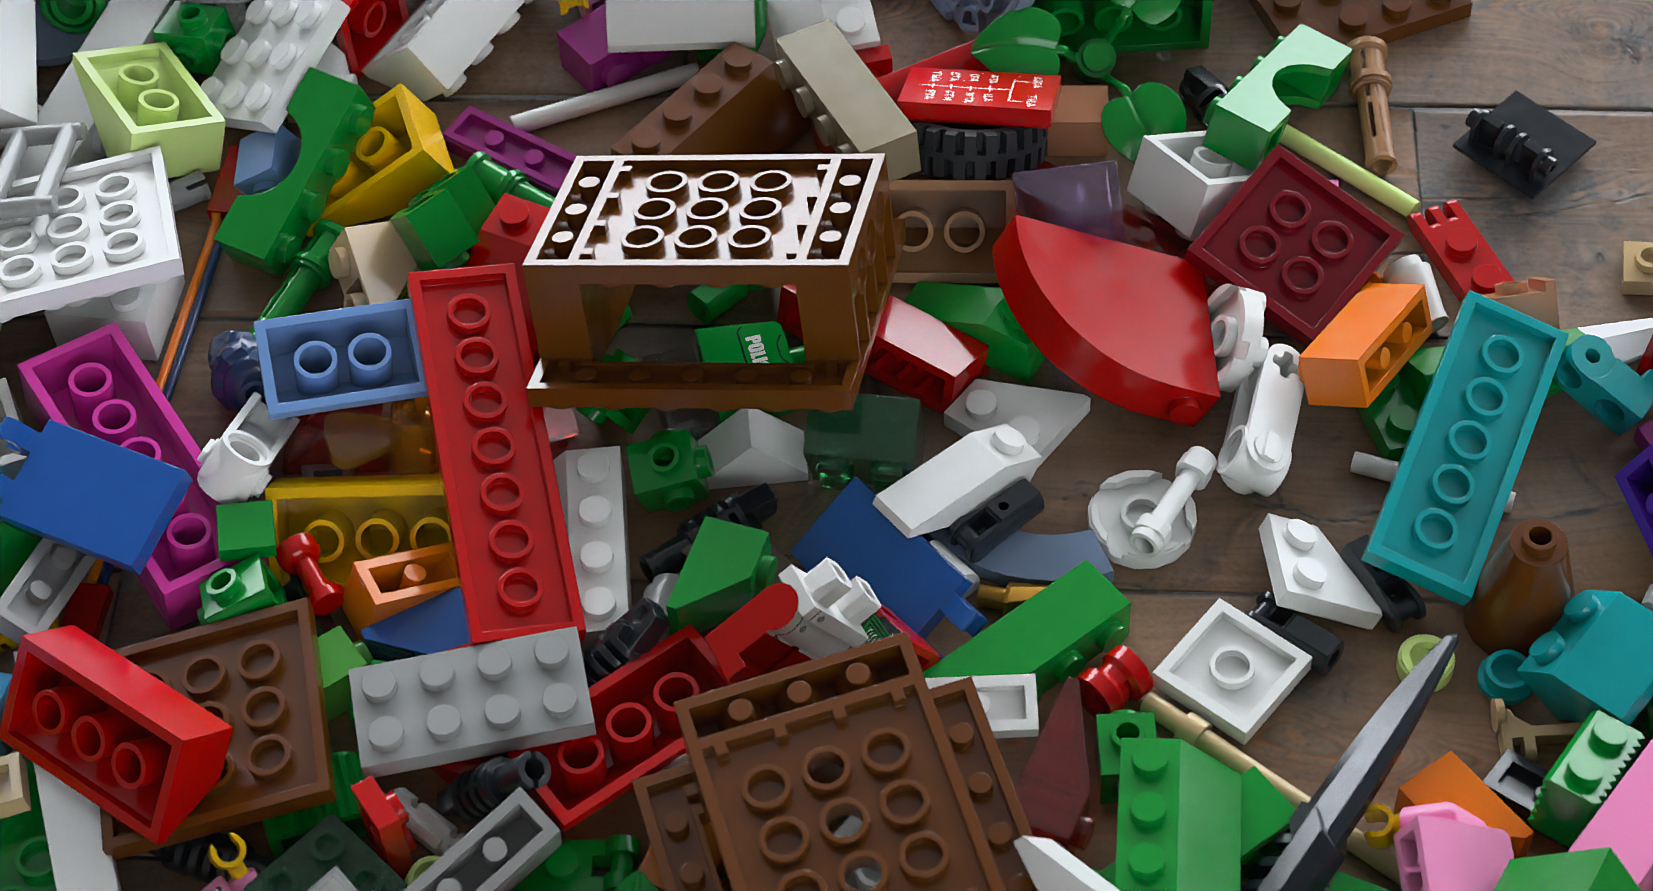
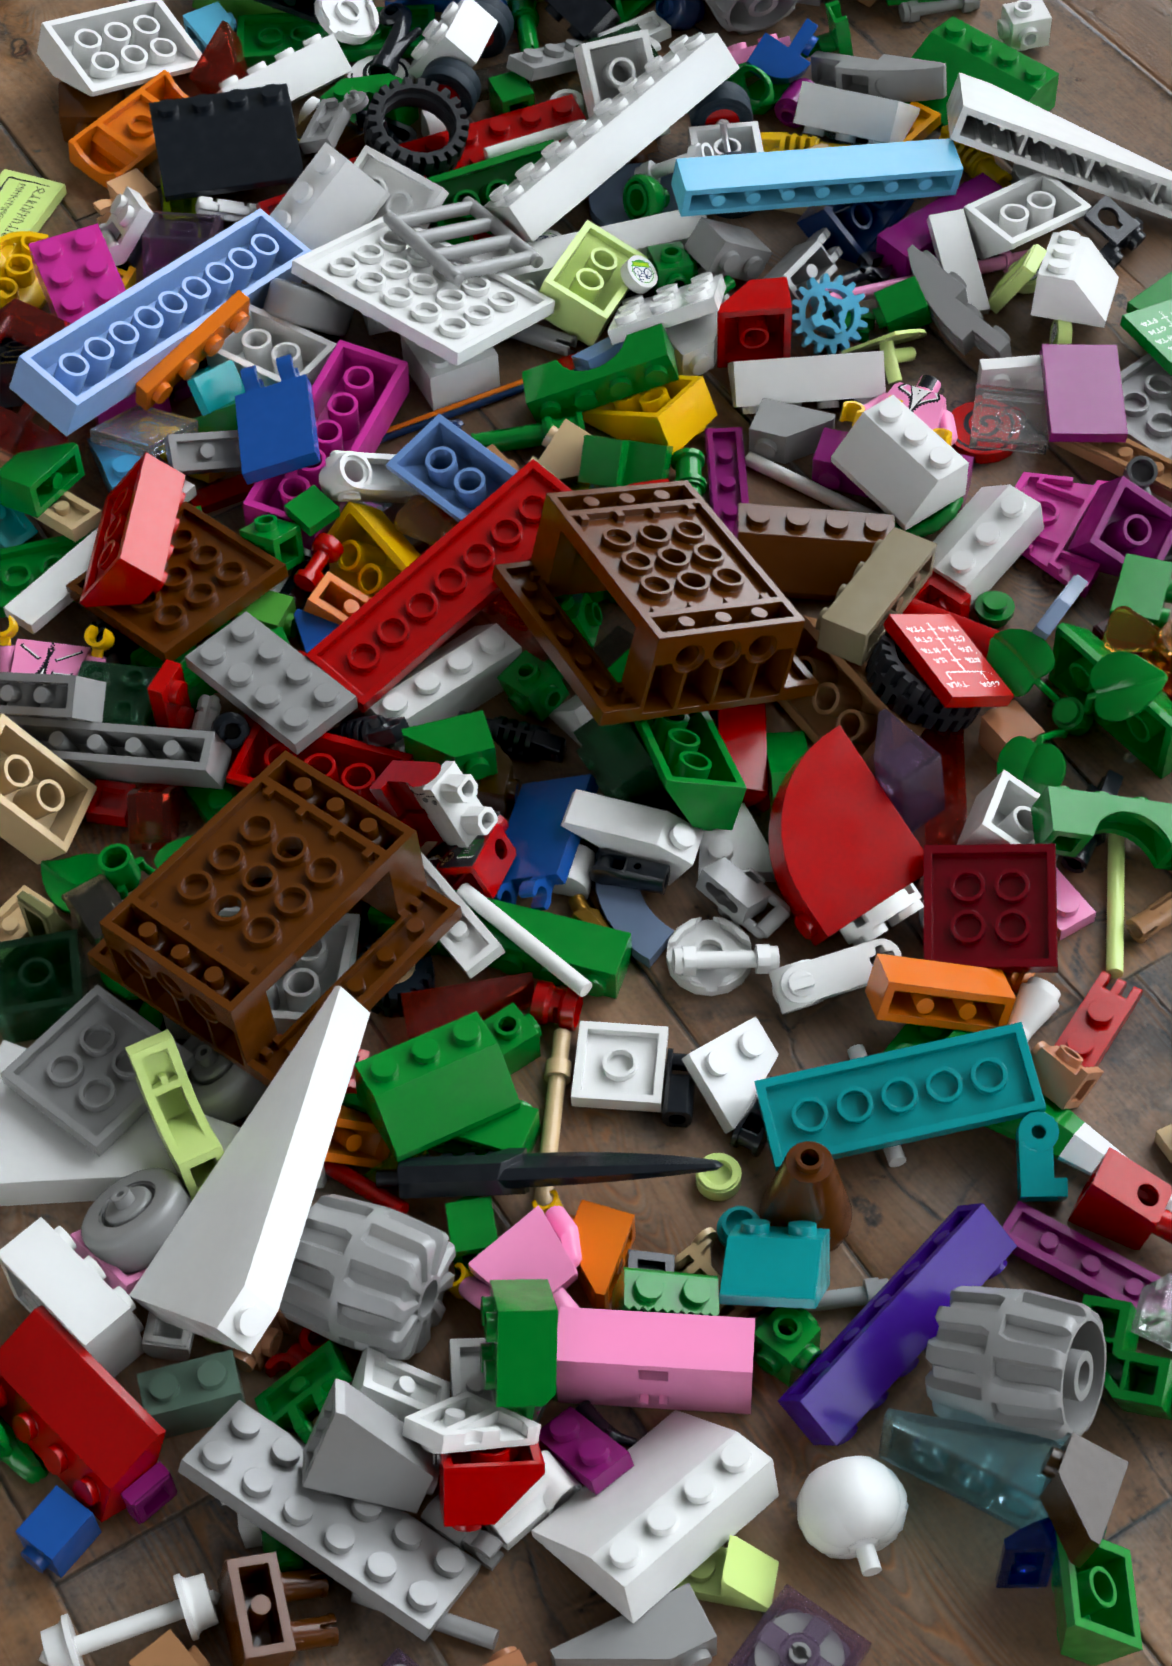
camera: 55 degrees right, 0 degrees up
(189, 59) = (639, 274): none -> white tile
(516, 70) = (787, 431): none -> light grey slope
(904, 42) = (994, 608): none -> green plate
(949, 375) = (695, 768): none -> green slope
(1036, 654) = (524, 940): none -> white bar
(1103, 444) = (742, 896): none -> light grey piece

